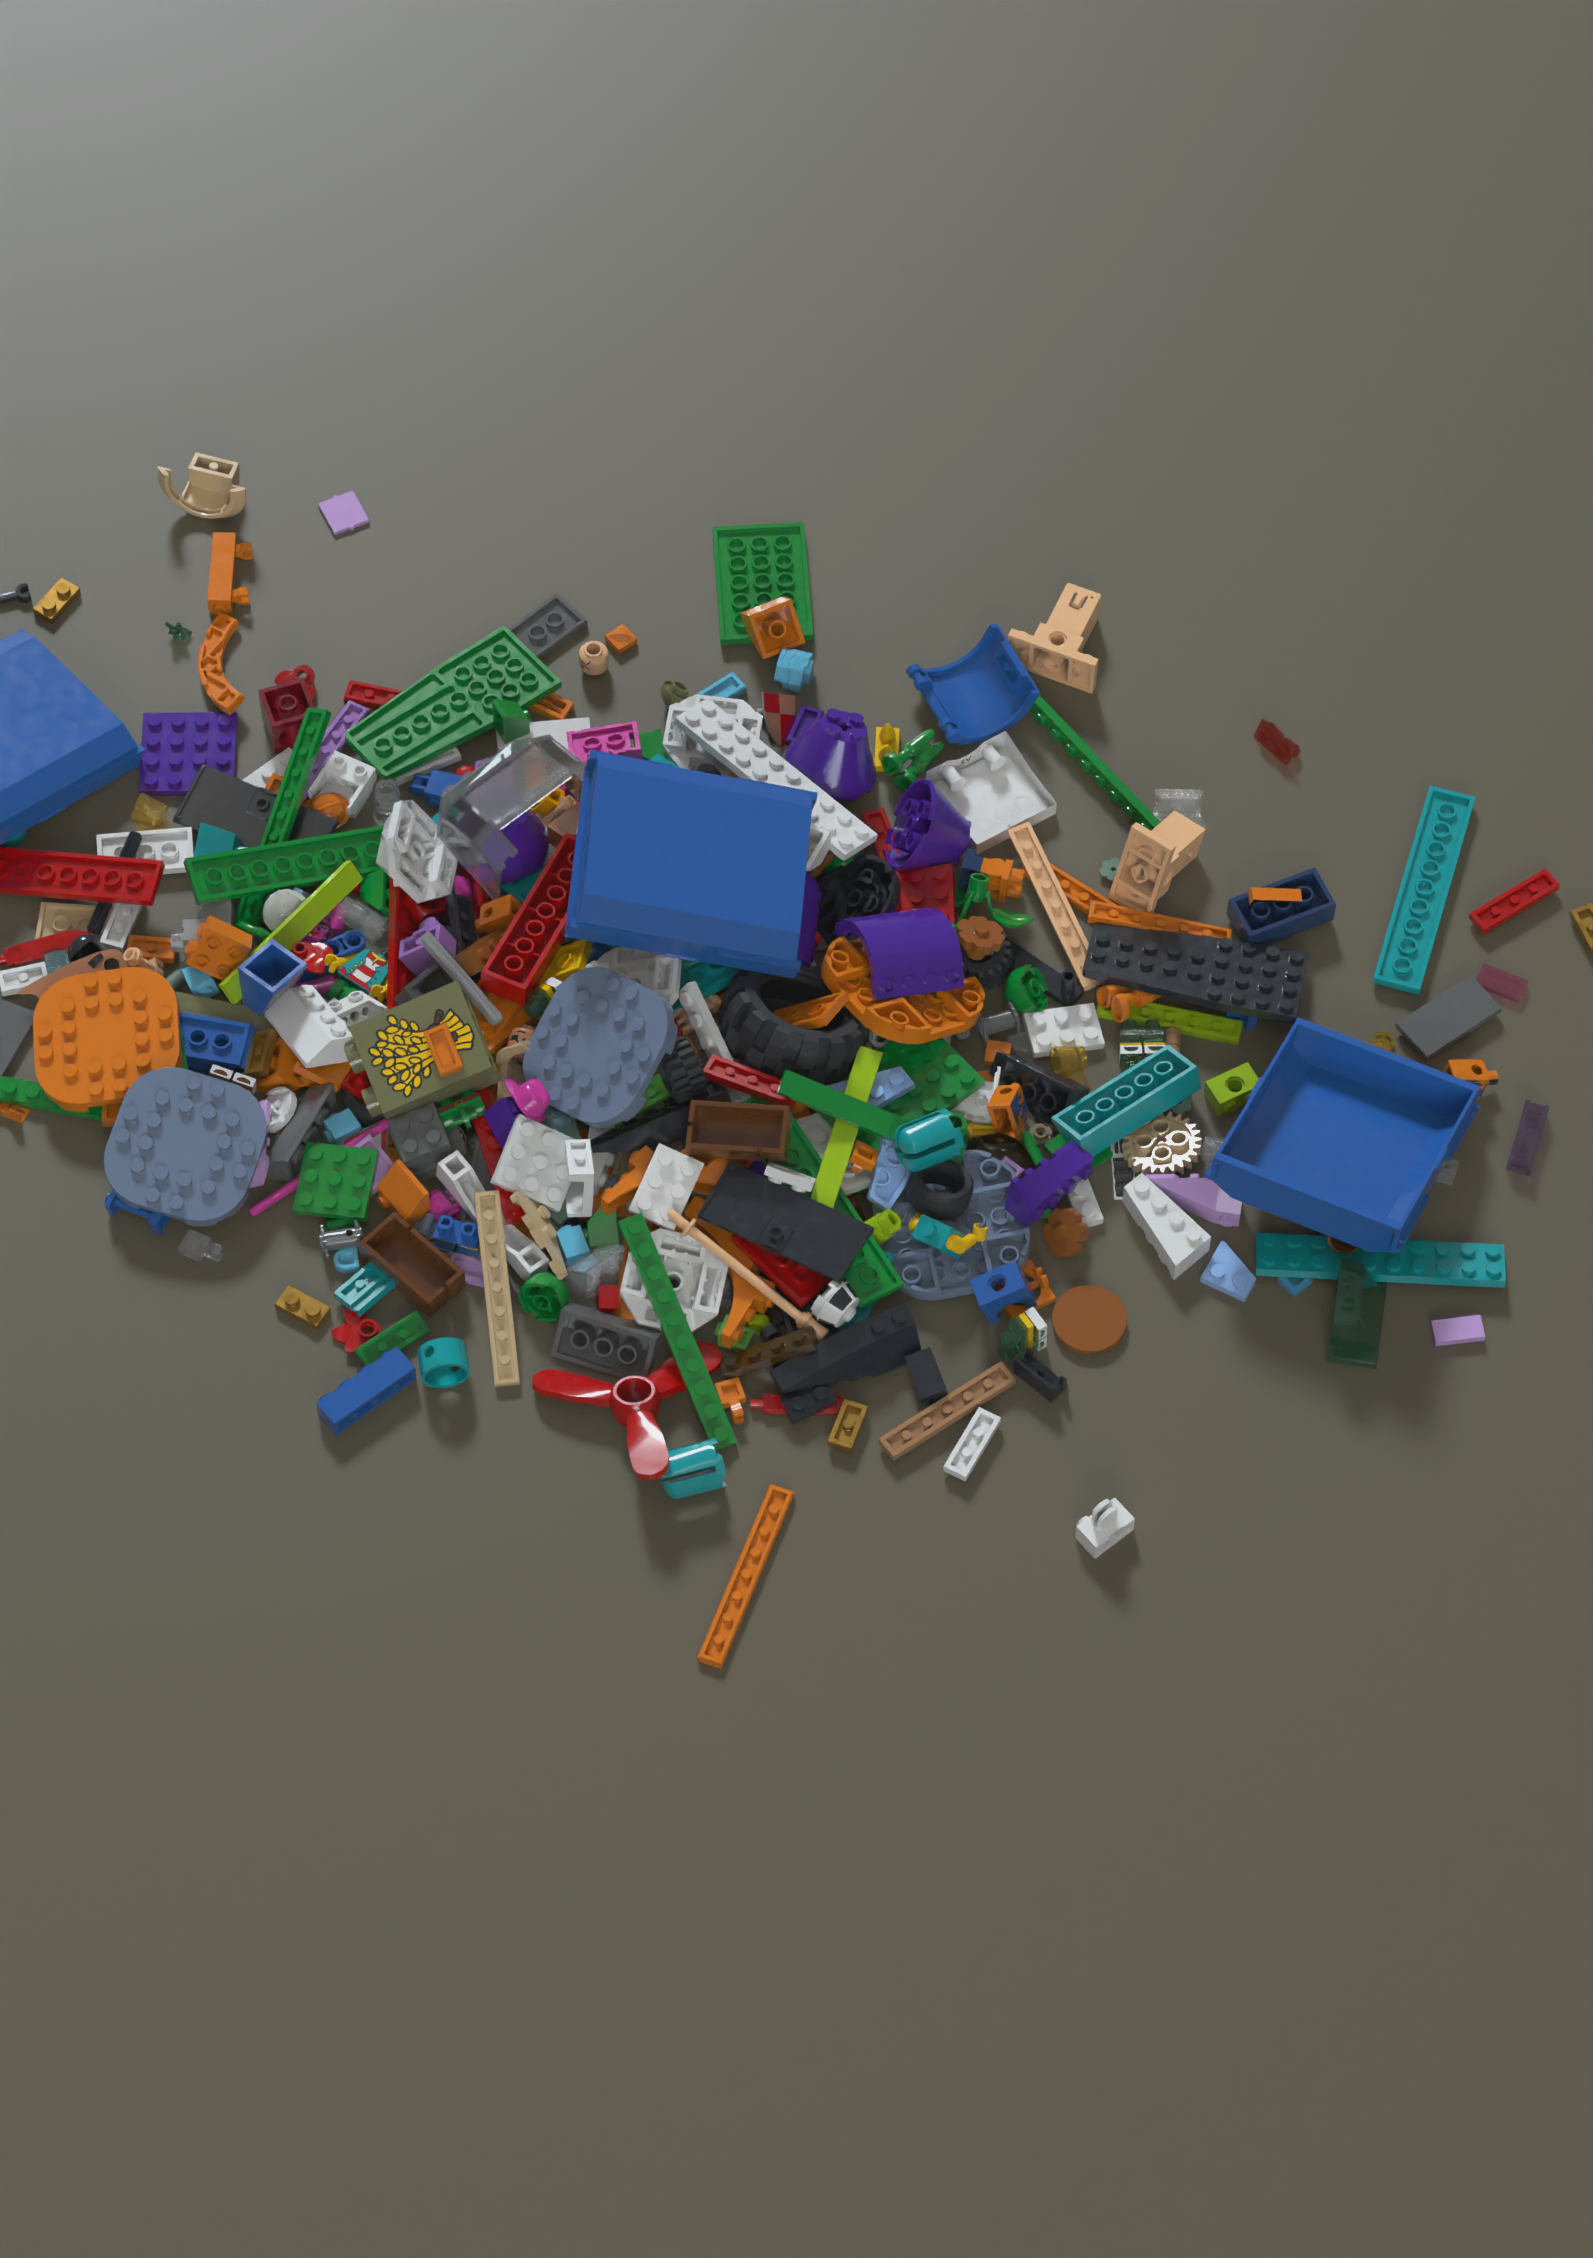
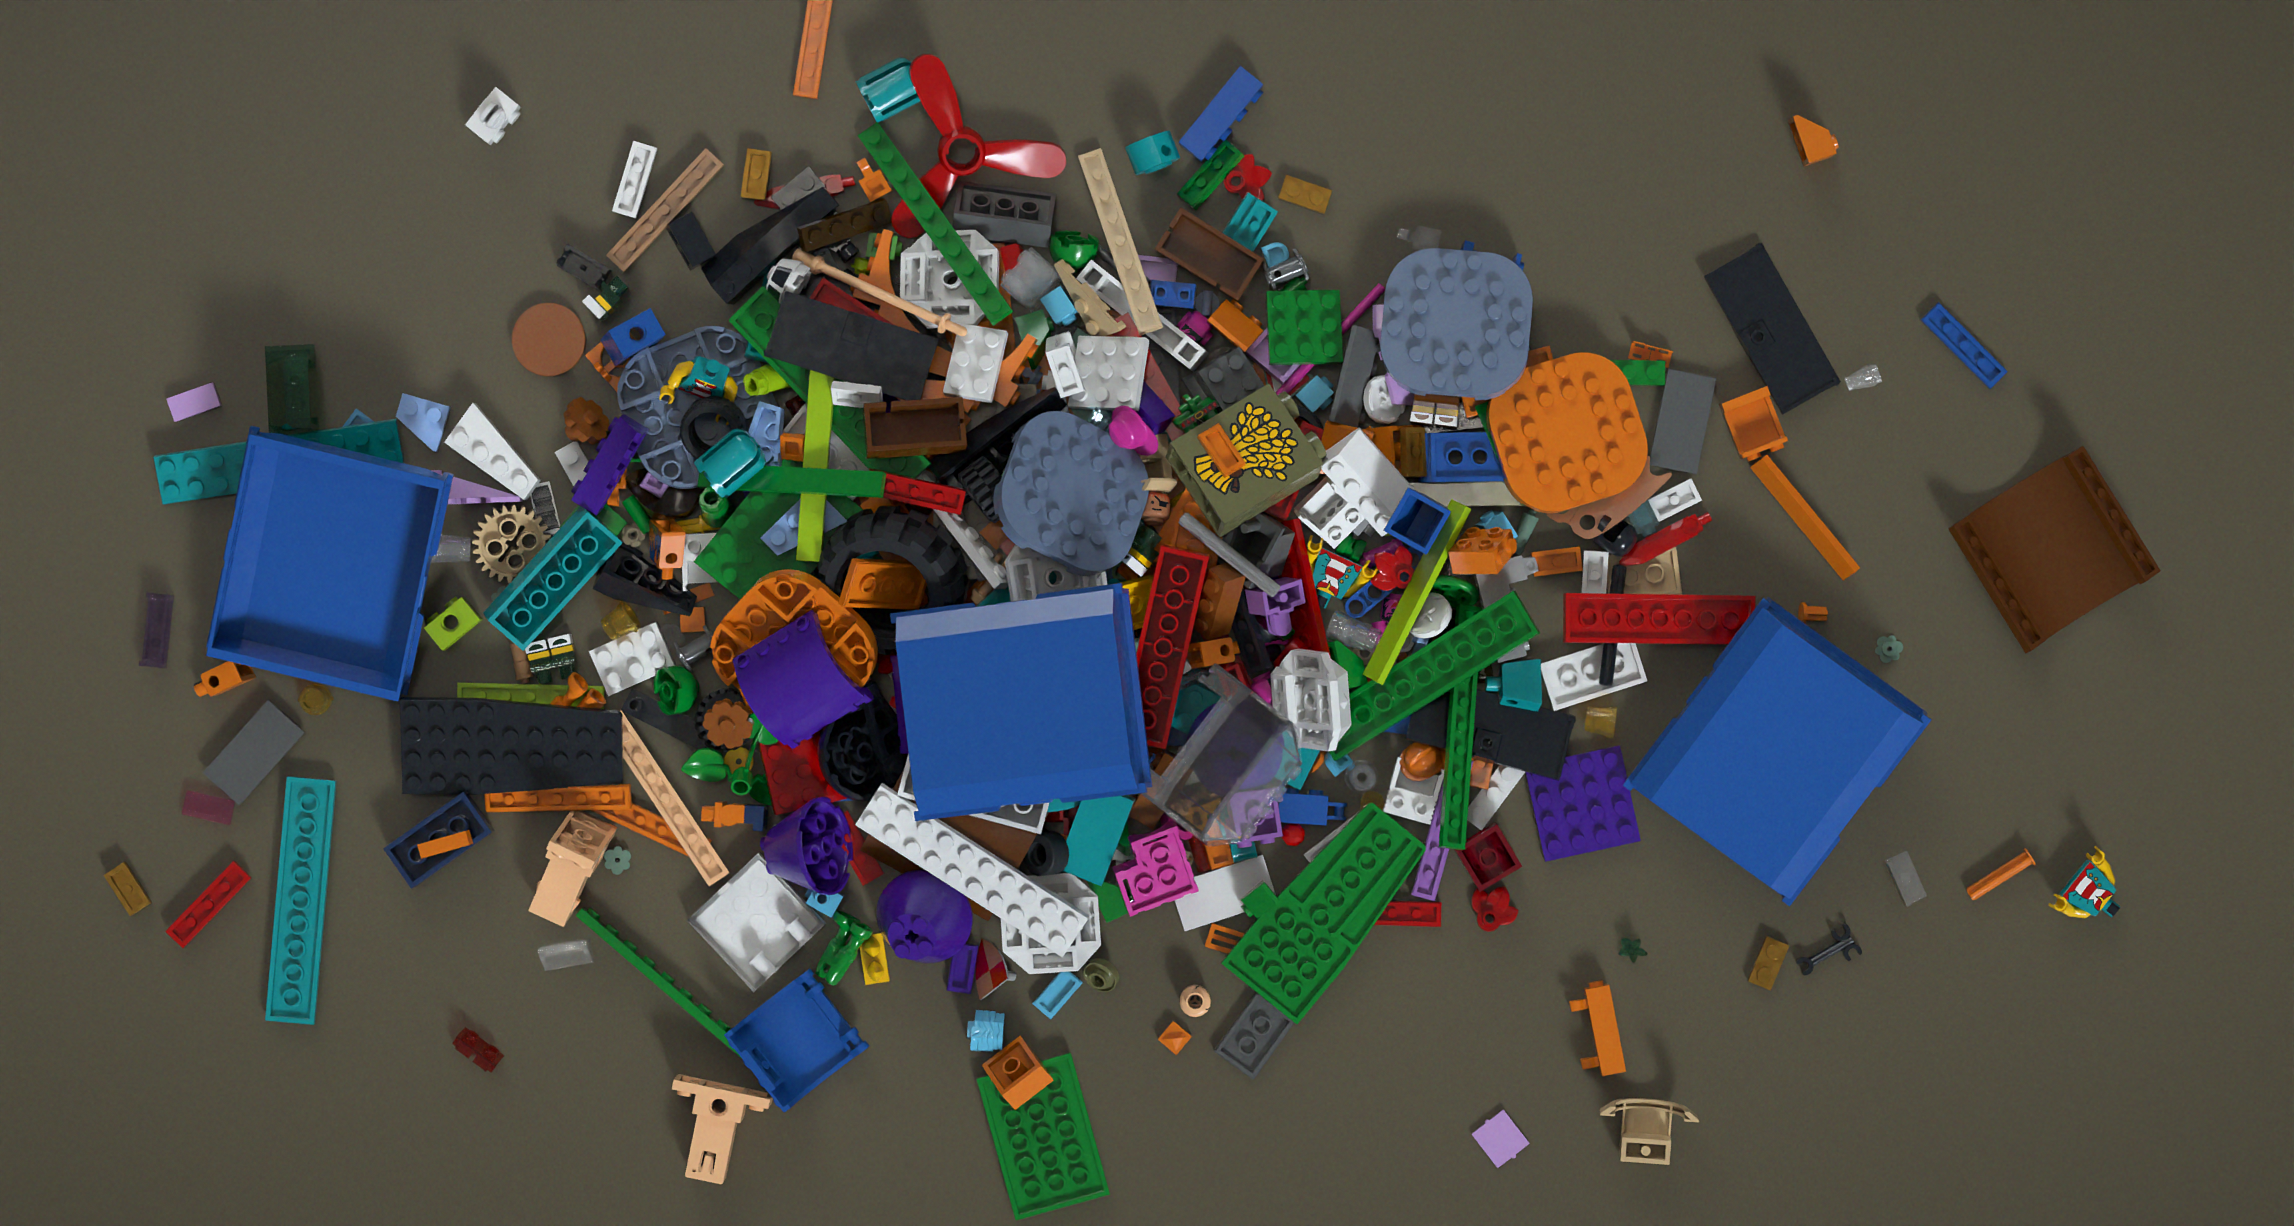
camera: 165 degrees right, 30 degrees up
(134, 957) = (1566, 531): light nougat hinge -> none
(211, 664) = (1586, 913): orange tile -> none

